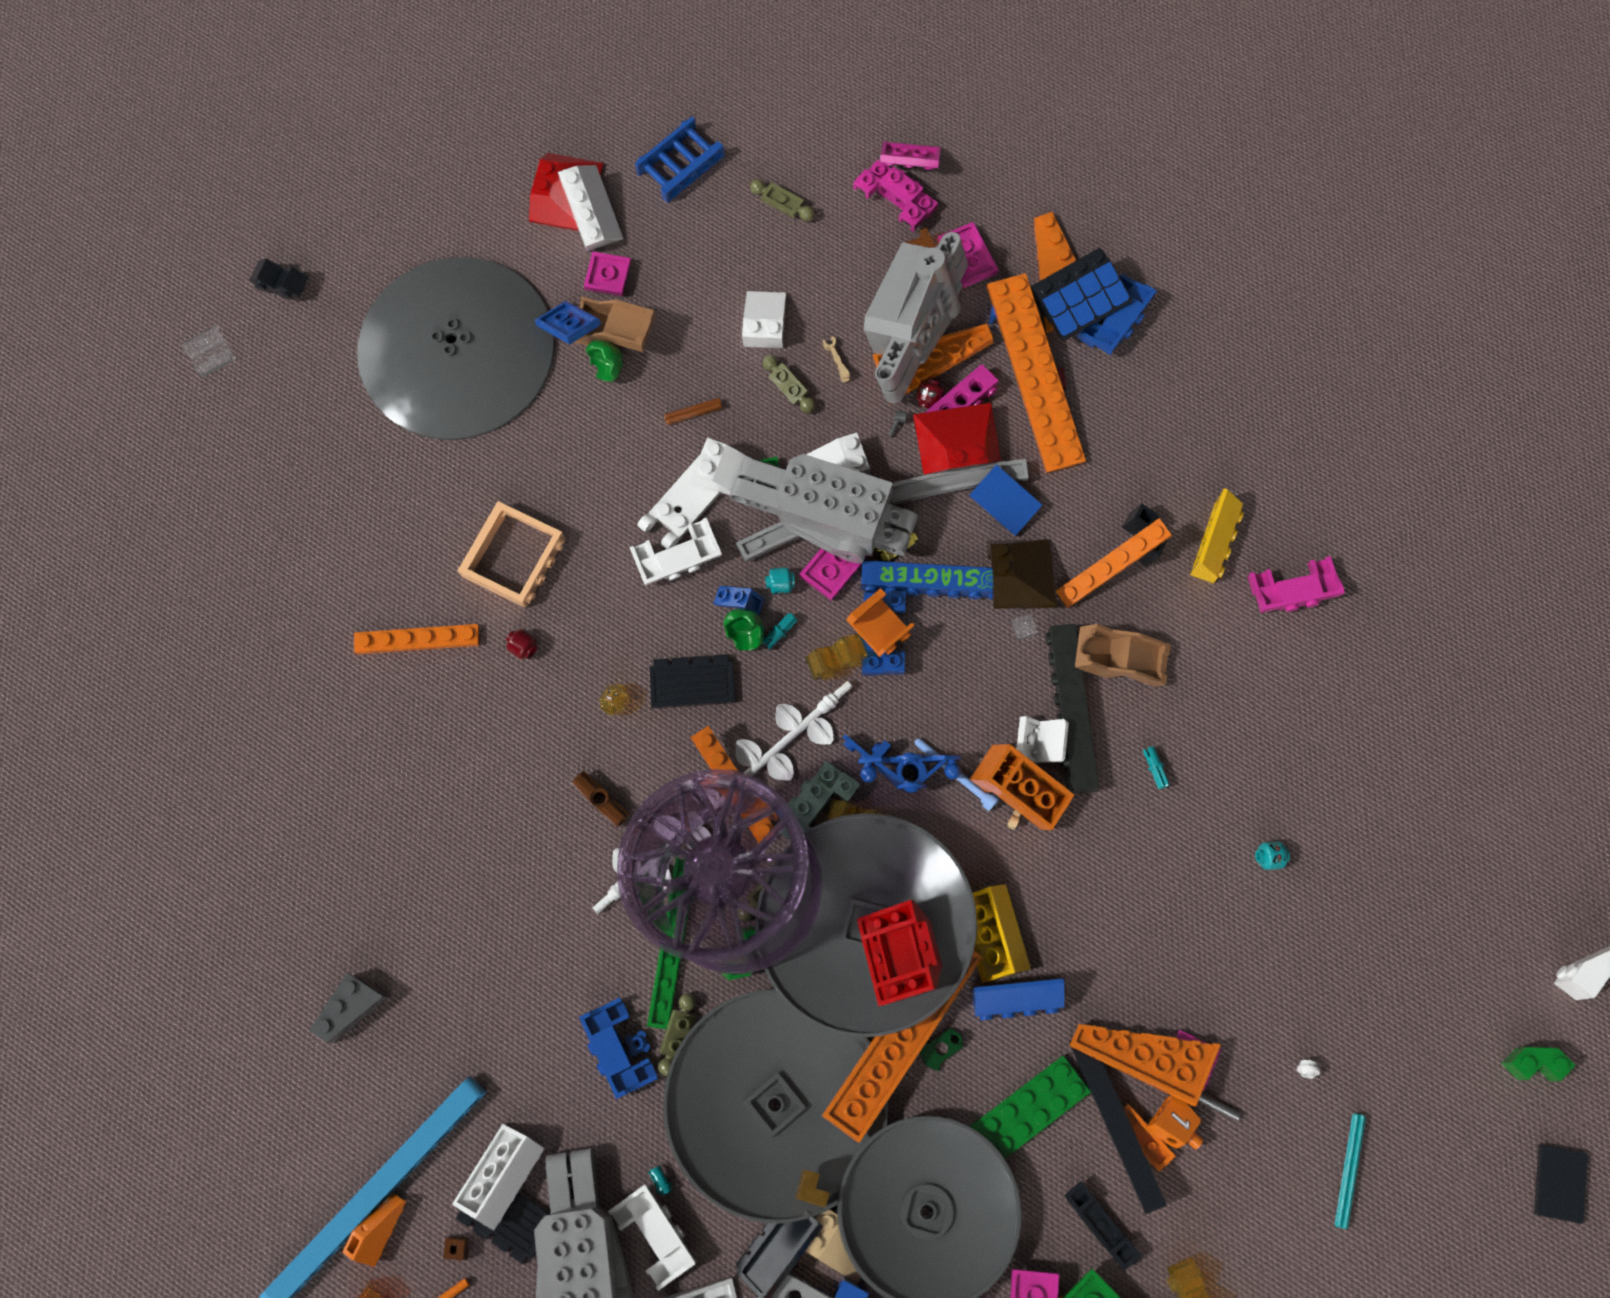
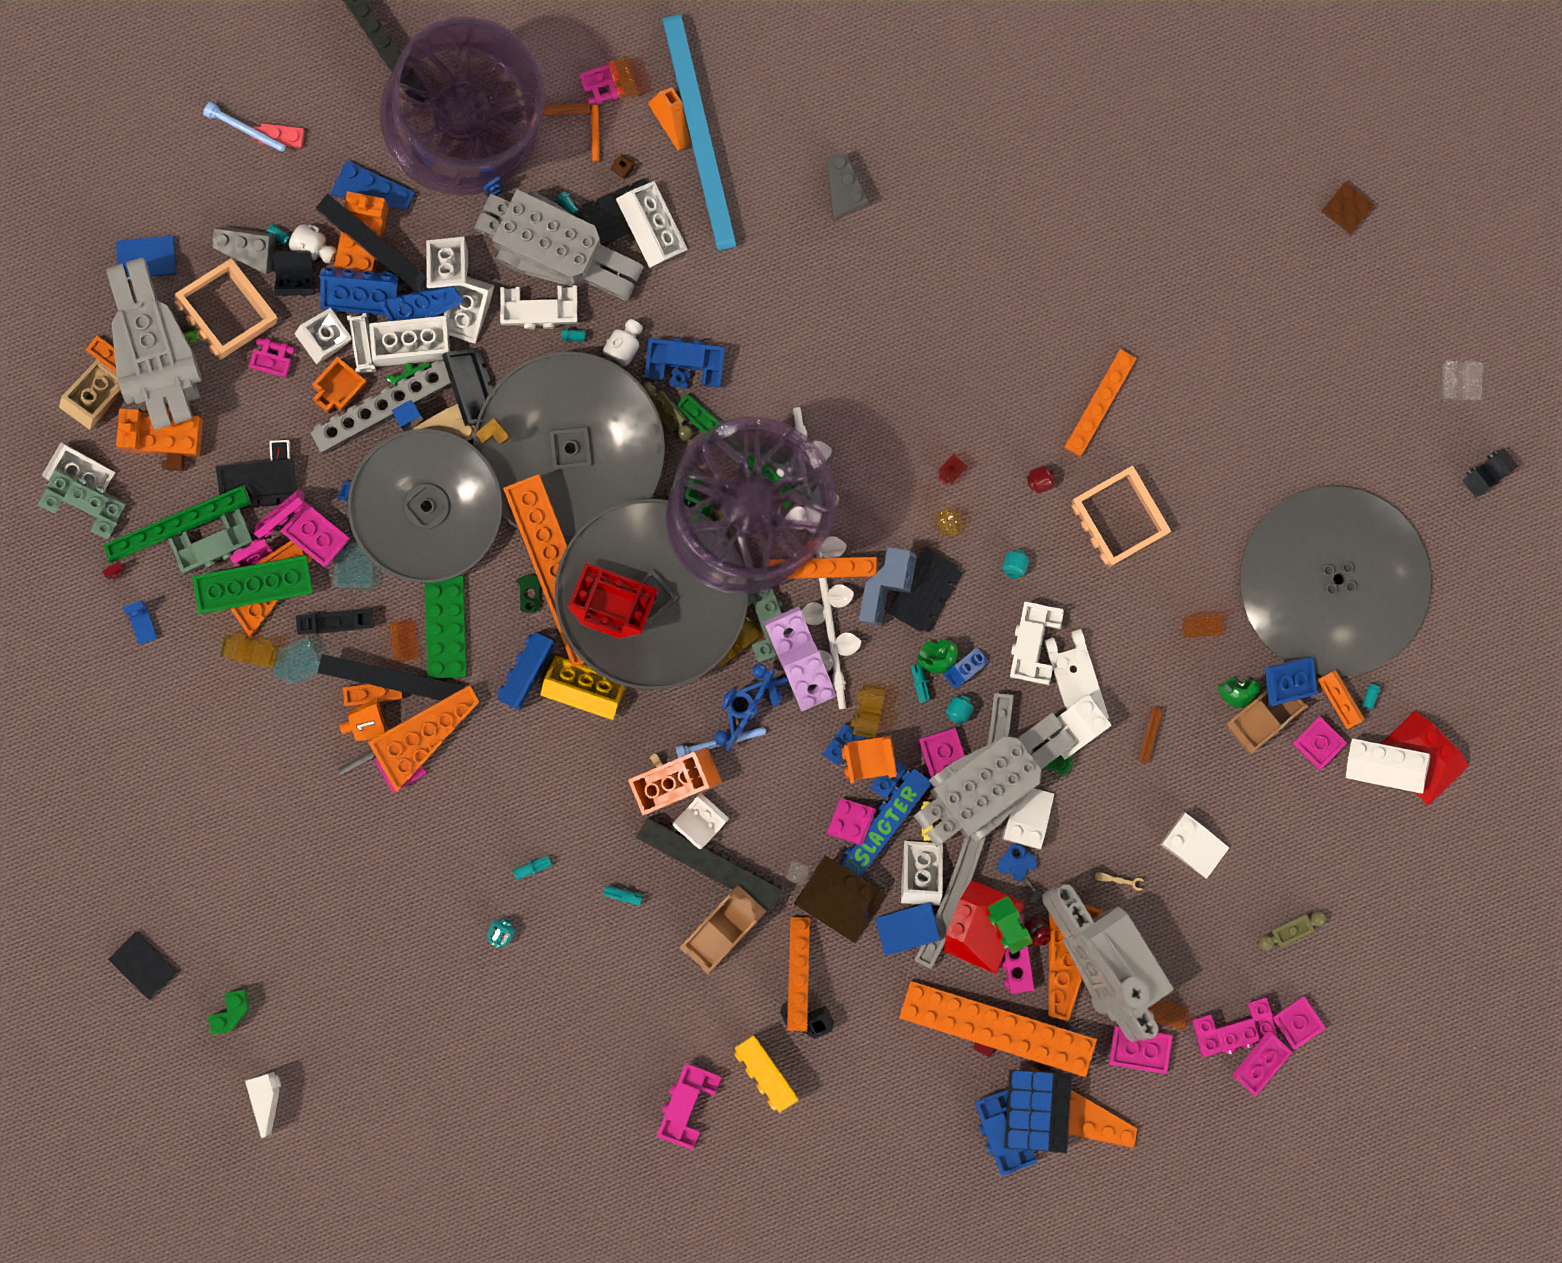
camera: 115 degrees right, 10 degrees up
(100, 539) = (1347, 208): none -> reddish brown plate
(529, 1281) = (567, 203): none -> teal pin
(538, 258) = (1371, 696): none -> teal pin
(557, 278) = (1341, 699): none -> orange plate
(563, 728) = (951, 470): none -> clear red brick
(567, 428) = (1202, 626): none -> clear orange panel
(609, 808) = (890, 461): reddish brown piece -> none
(615, 617) = (1015, 564): none -> teal head
(639, 1122) = (623, 344): none -> white piece
(693, 171) = (1368, 863): blue fence -> none
(699, 712) = (895, 575): none -> sand blue piece
(788, 384) = (1122, 826): olive plate -> none
(830, 748) = (800, 658): none -> lavender bracket
(855, 150) = (1298, 1023): none -> dark pink plate
(883, 450) = (1017, 865): none -> blue plate
(943, 408) = (1010, 925): none -> green brick
(946, 608) = (851, 821): none -> dark pink plate
(948, 520) = (922, 873): none -> white slope
(1038, 1244) = (353, 569): none -> clear light blue plate
(1071, 1141) = (404, 641): none -> clear orange panel
(1166, 1236) = (297, 662): none -> clear light blue plate
(1192, 868) = (532, 867): none -> teal axle
(1308, 1069) = (337, 845): white plate -> none
(1350, 1171) = (251, 823): teal axle -> none

